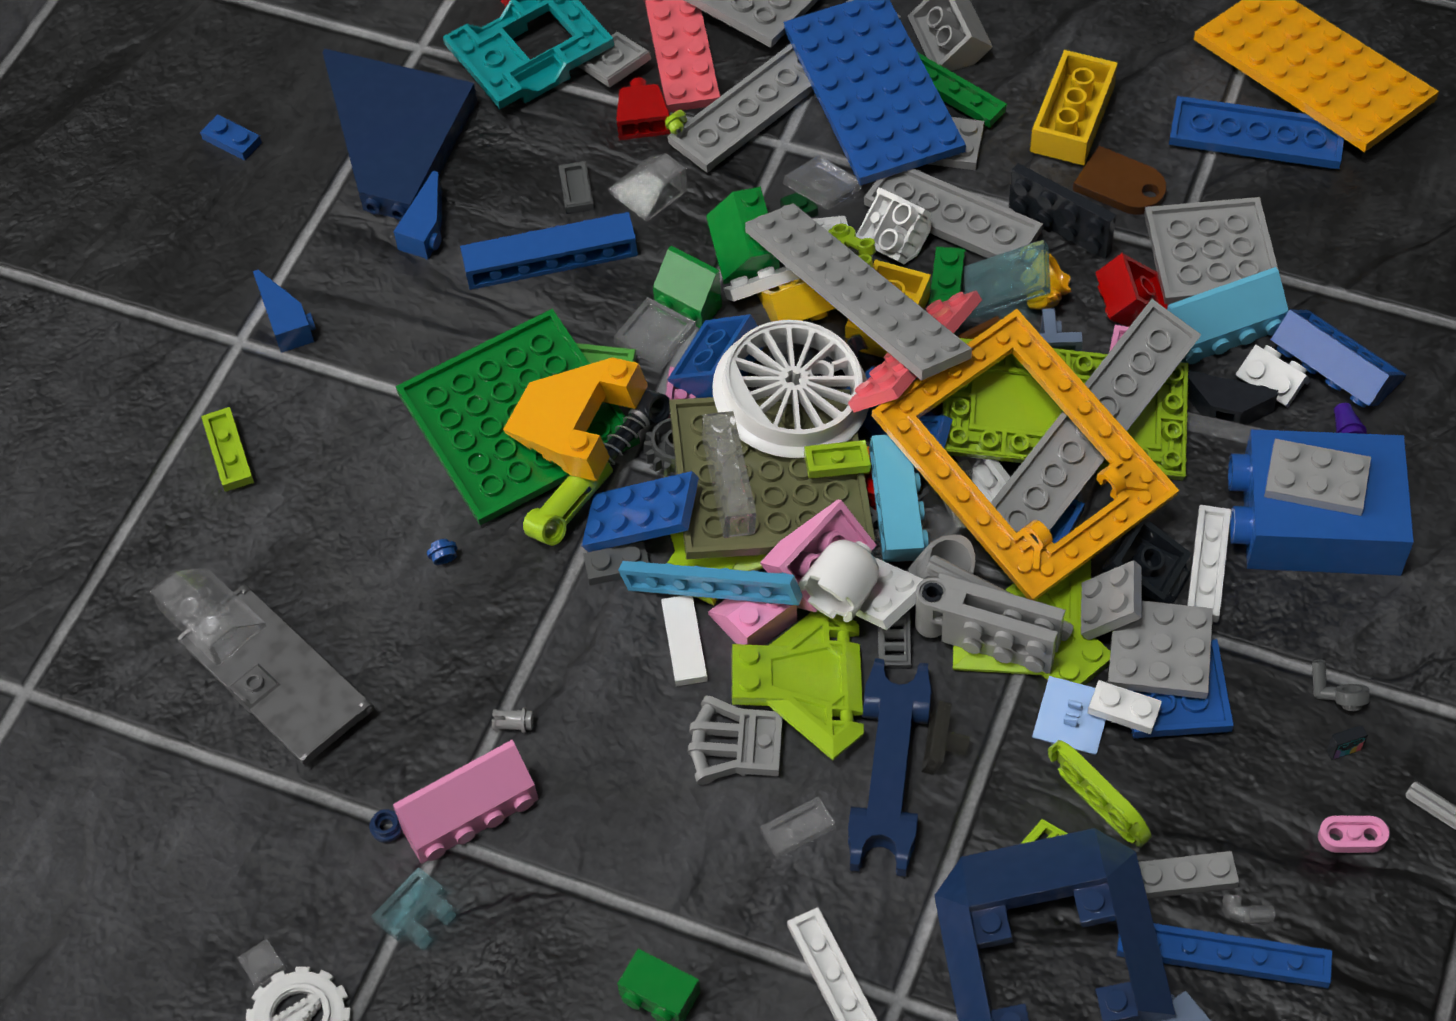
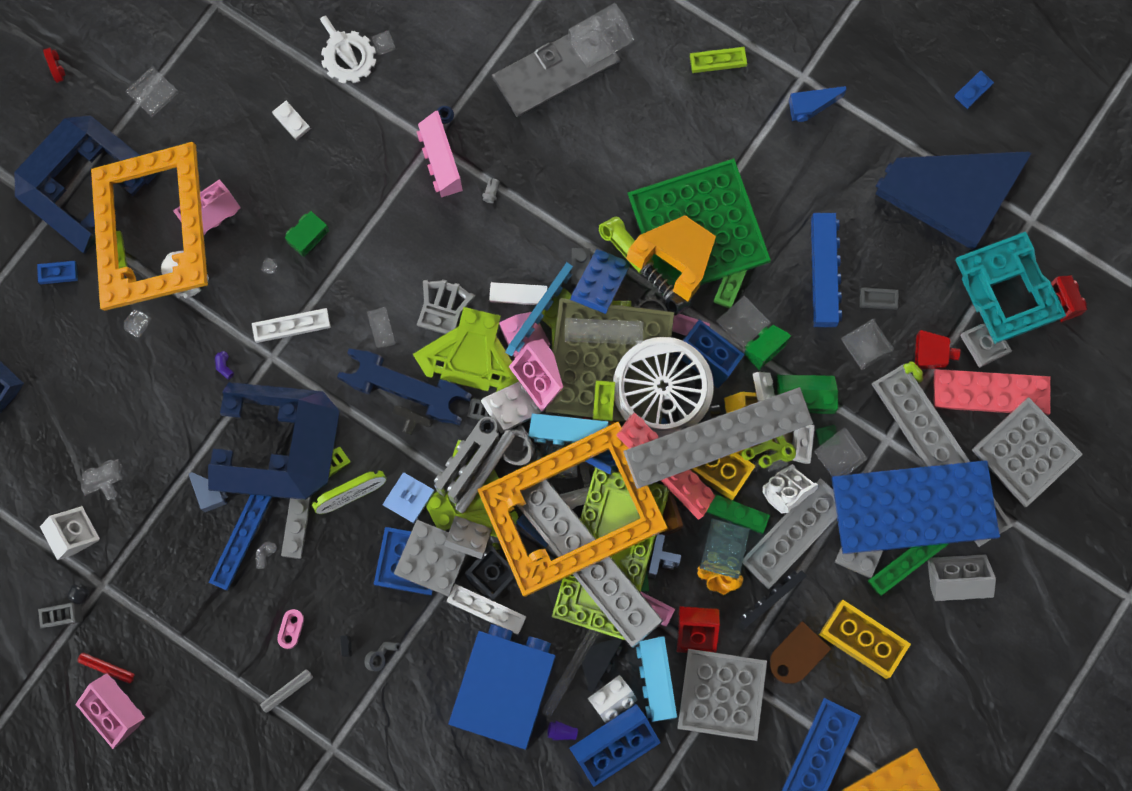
camera: 100 degrees right, 20 degrees up
(408, 904) = (394, 119): clear light blue plate -> none
(421, 225) = (868, 197): blue slope -> none
(442, 551) = (612, 169): blue plate -> none
(841, 579) = (513, 379): white cylinder -> none
(1124, 707) = (399, 524): white plate -> none
(1317, 477) = (507, 681): light grey plate -> none

